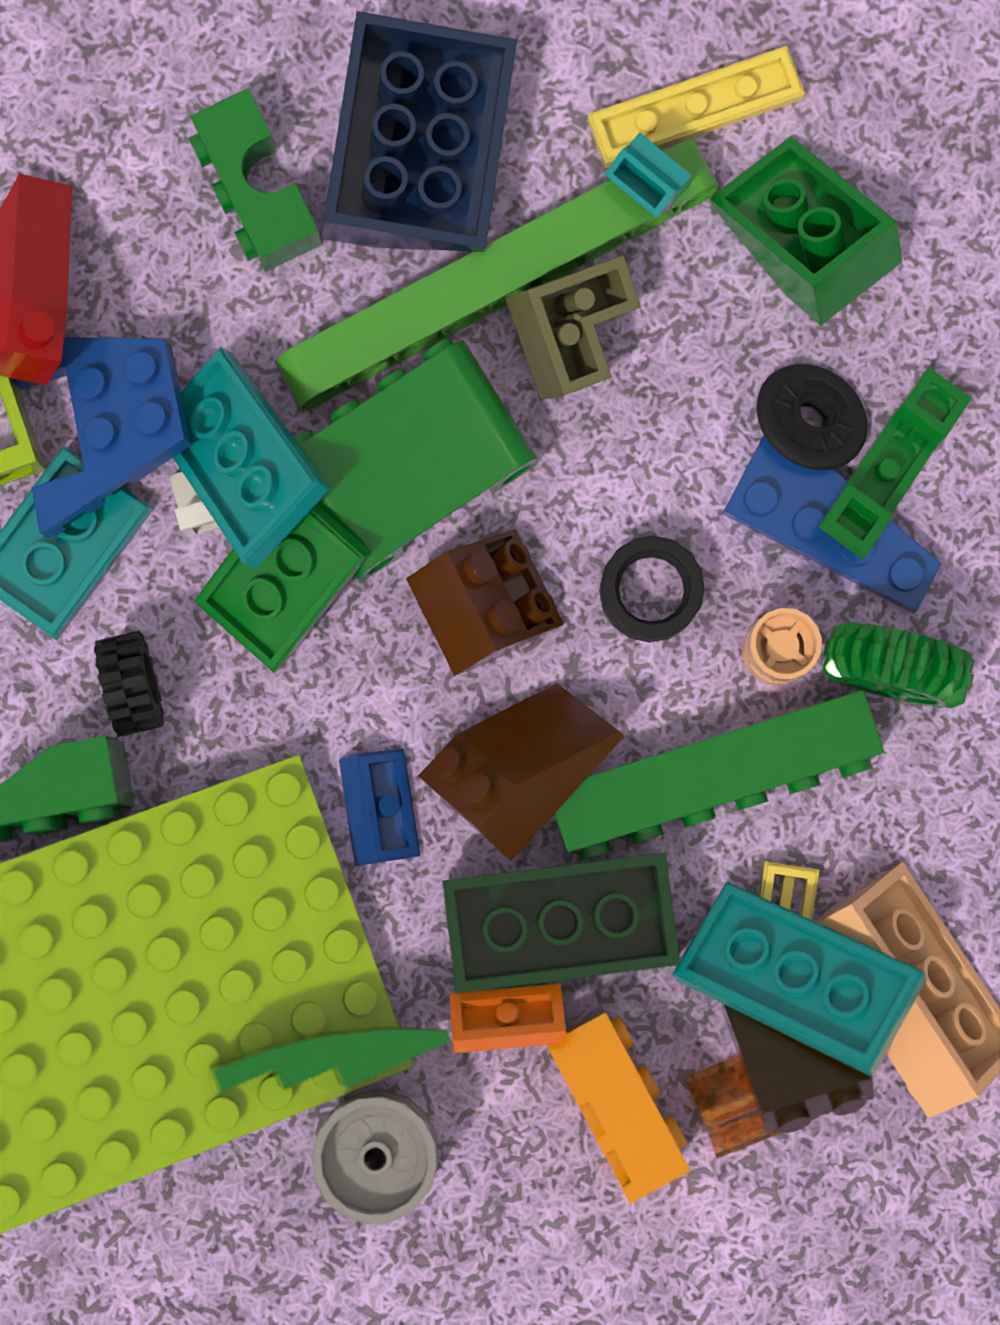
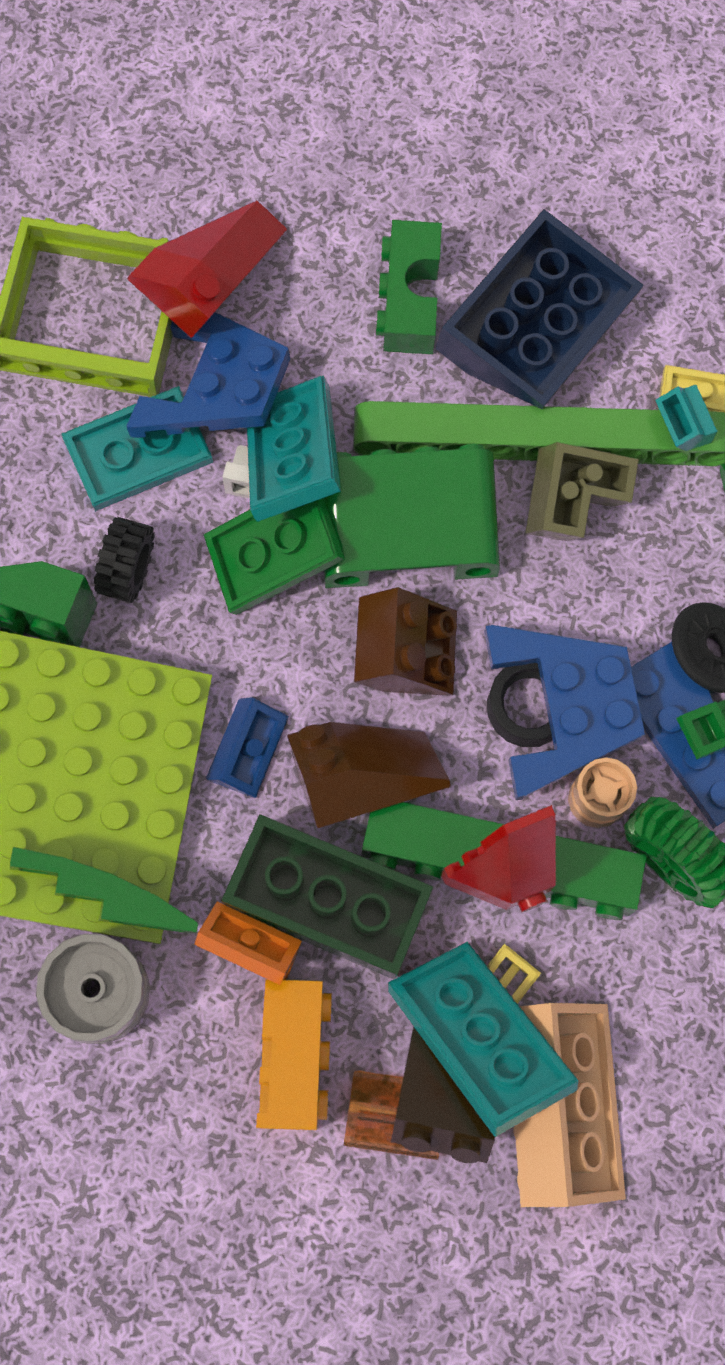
camera: 30 degrees right, 10 degrees down
(710, 555) = (586, 699): none -> blue wing
(738, 793) = (511, 864): none -> red wedge

